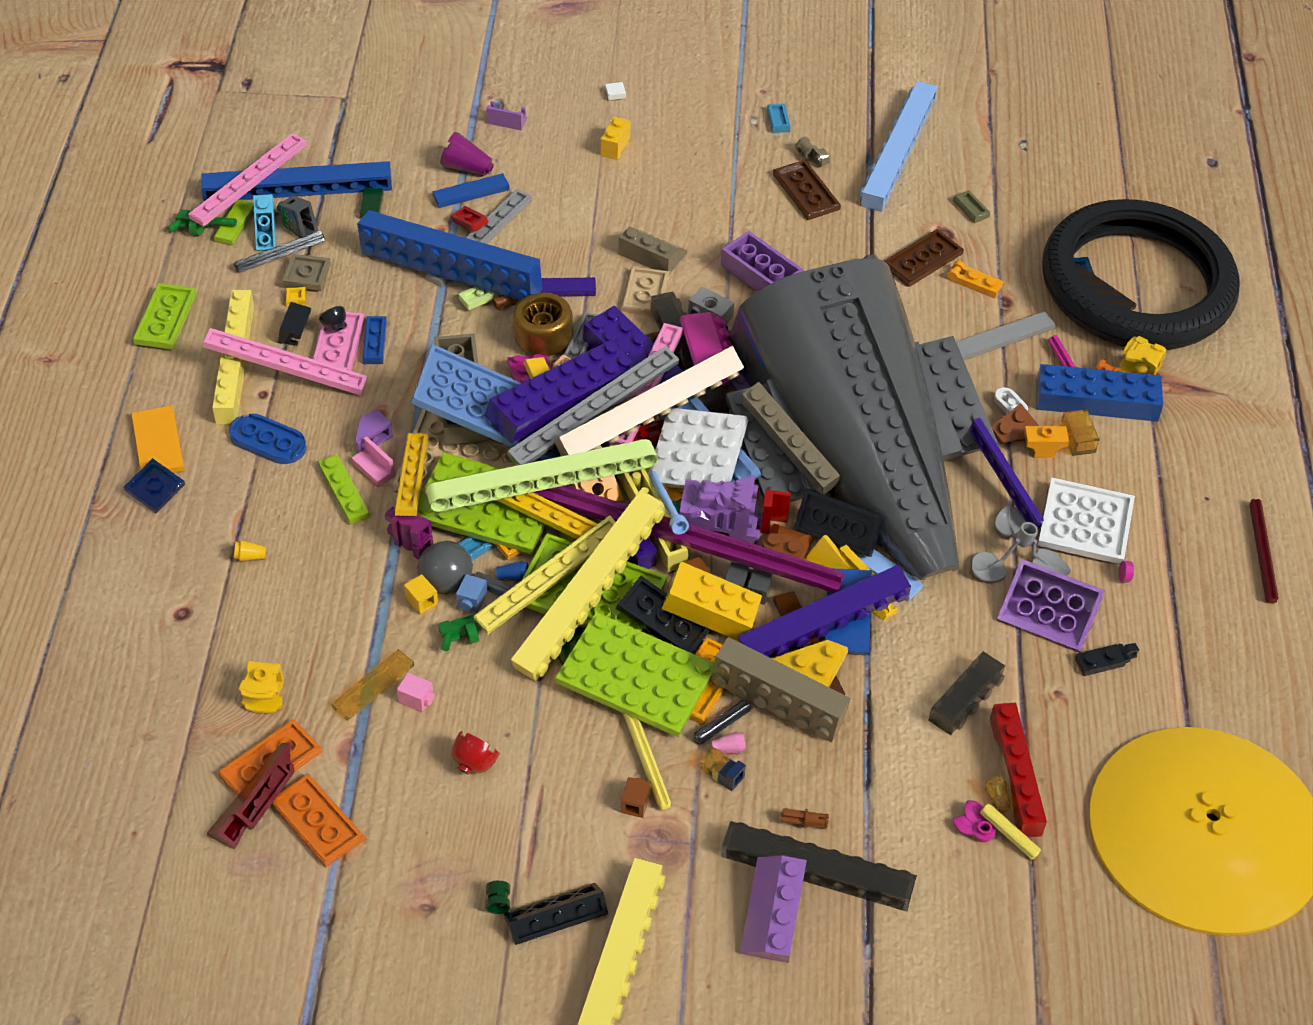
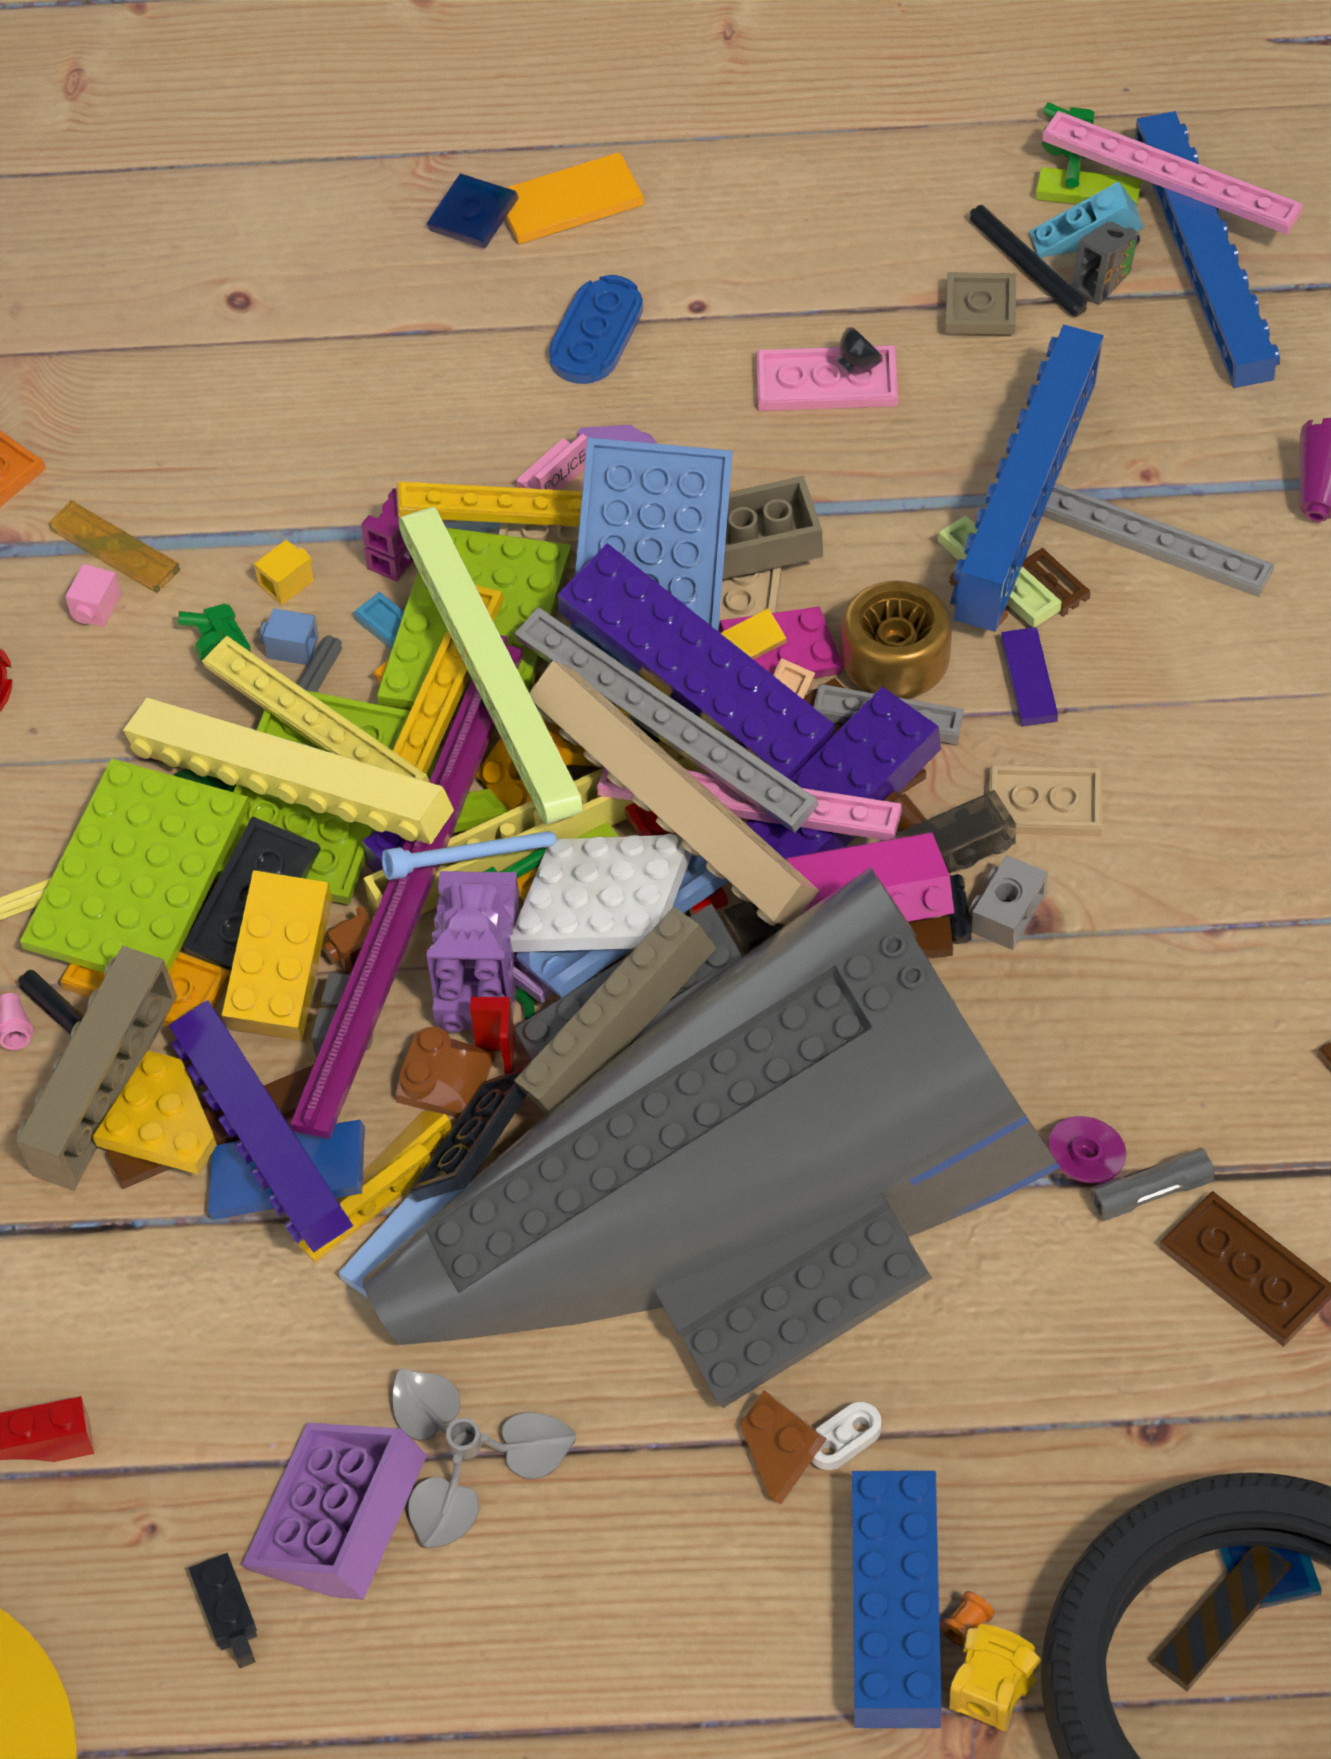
camera: 90 degrees right, 5 degrees up
(165, 316) = (839, 146): lime plate -> none
(231, 368) = (759, 245): light yellow brick -> none
(249, 551) = (353, 346): yellow cone -> none
(262, 687) = (86, 407): yellow piece -> none
(284, 361) = (736, 304): bright pink plate -> none
(293, 323) = (849, 304): black hinge -> none
(296, 295) = (925, 303): yellow tile -> none
(343, 489) = (500, 442): lime plate -> none
(371, 200) = (1183, 362): dark green tile -> none
(374, 340) = (842, 425): blue tile -> none
(445, 566) = (339, 591): dark grey cylinder -> none
(469, 219) = (1162, 501): red plate -> none
(471, 190) = (1255, 499): blue tile -> none
(512, 571) = (344, 682): blue cone -> none
(649, 250) = (1156, 792): dark tan slope -> none
(756, 261) = (1128, 971): medium lavender brick -> none
(966, 693) = (127, 1370): clear smoke brick -> none
(975, 279) = (1199, 1368): light orange plate -> none
(1005, 335) = (1019, 1391): light grey tile -> none
(1005, 473) = (625, 1410): dark purple tile -> none
(1046, 440) = (741, 1487): light orange brick -> none
(1060, 351) = (995, 1539): dark pink axle -> none
(1081, 432) = (781, 1560): clear yellow brick -> none
(1086, 521) = (552, 1575): white plate -> none
(1126, 571) = (428, 1643): dark pink tile -> none

